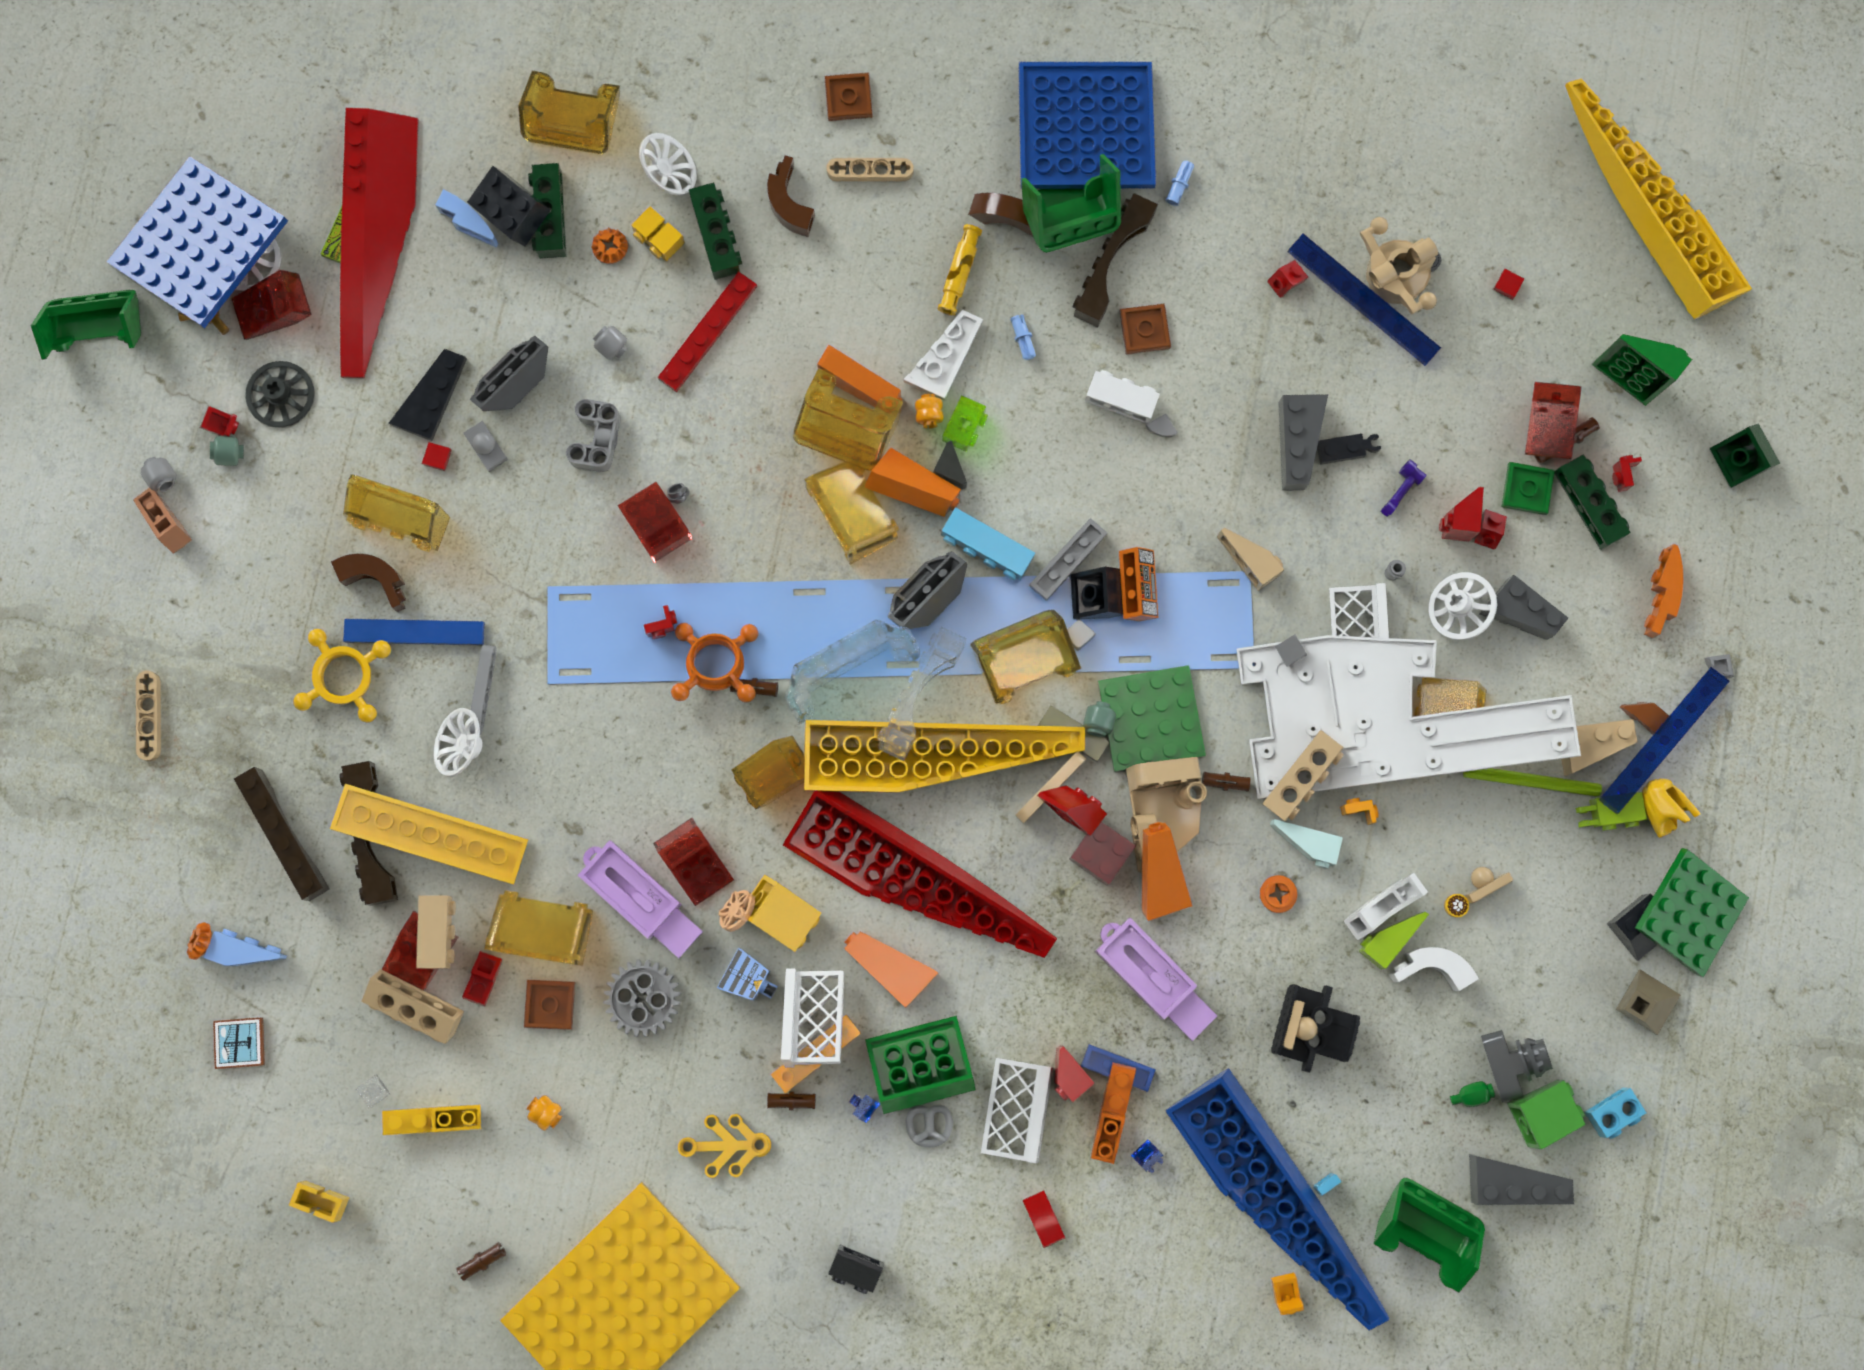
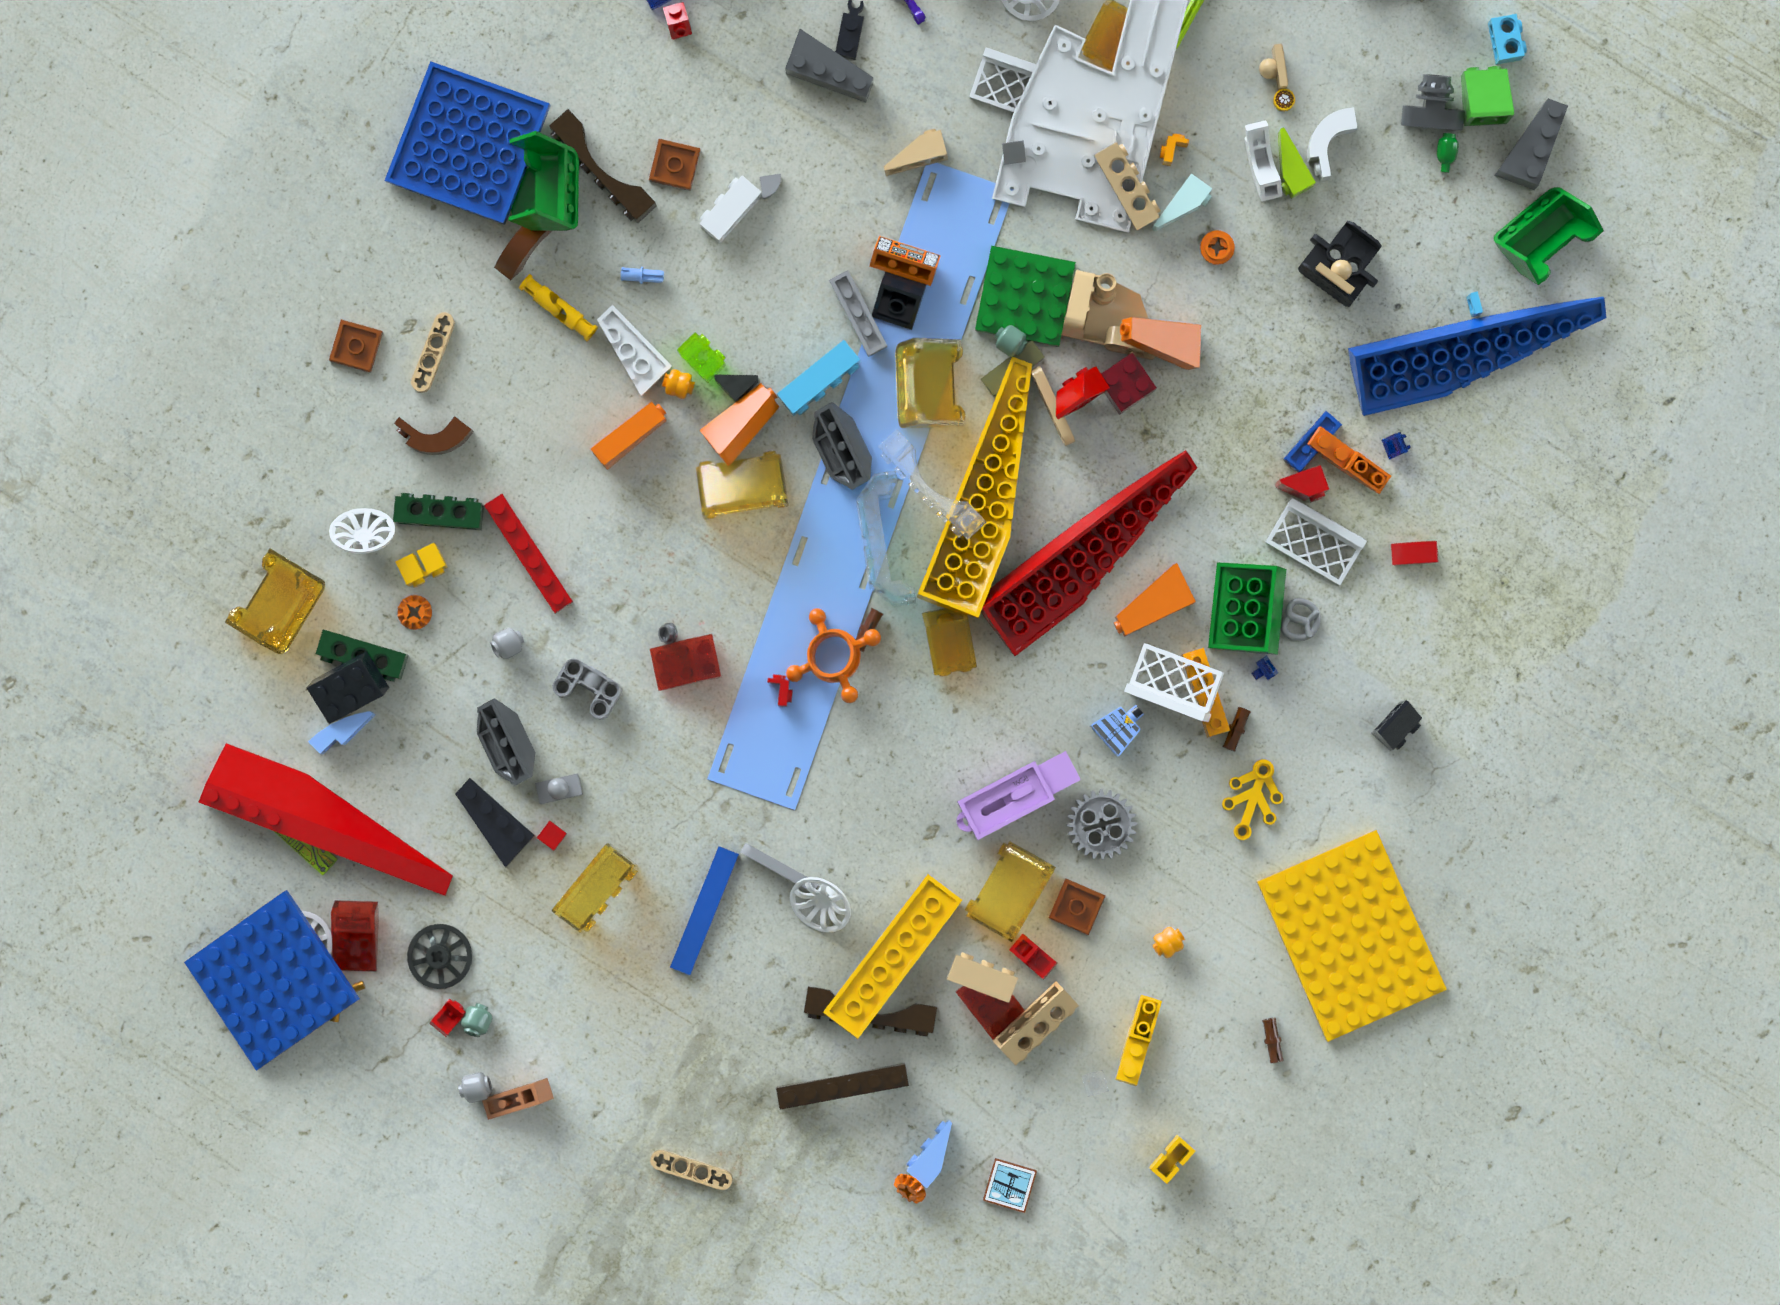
camera: 70 degrees left, 5 degrees up
(87, 317) = (304, 1100): green windscreen -> none
(317, 638) = (731, 1027): yellow piece -> none
(365, 566) = (628, 935): reddish brown arch -> none
(693, 861) = (1000, 738): clear red slope -> none
(736, 909) = (1058, 715): light nougat wheel -> none
(782, 913) = (1073, 679): yellow slope -> none
(844, 427) = (668, 464): clear yellow windscreen -> none
(1080, 634) = (928, 328): light grey slope -> none
(1154, 977) = (1248, 381): lavender piece -> none
(1180, 183) = (553, 80): light blue axle -> none
(1242, 783) = (1104, 253): reddish brown pin -> none
(1287, 1294) = (1551, 373): light orange bracket -> none
(1396, 565) = (976, 28): light grey pin -> none

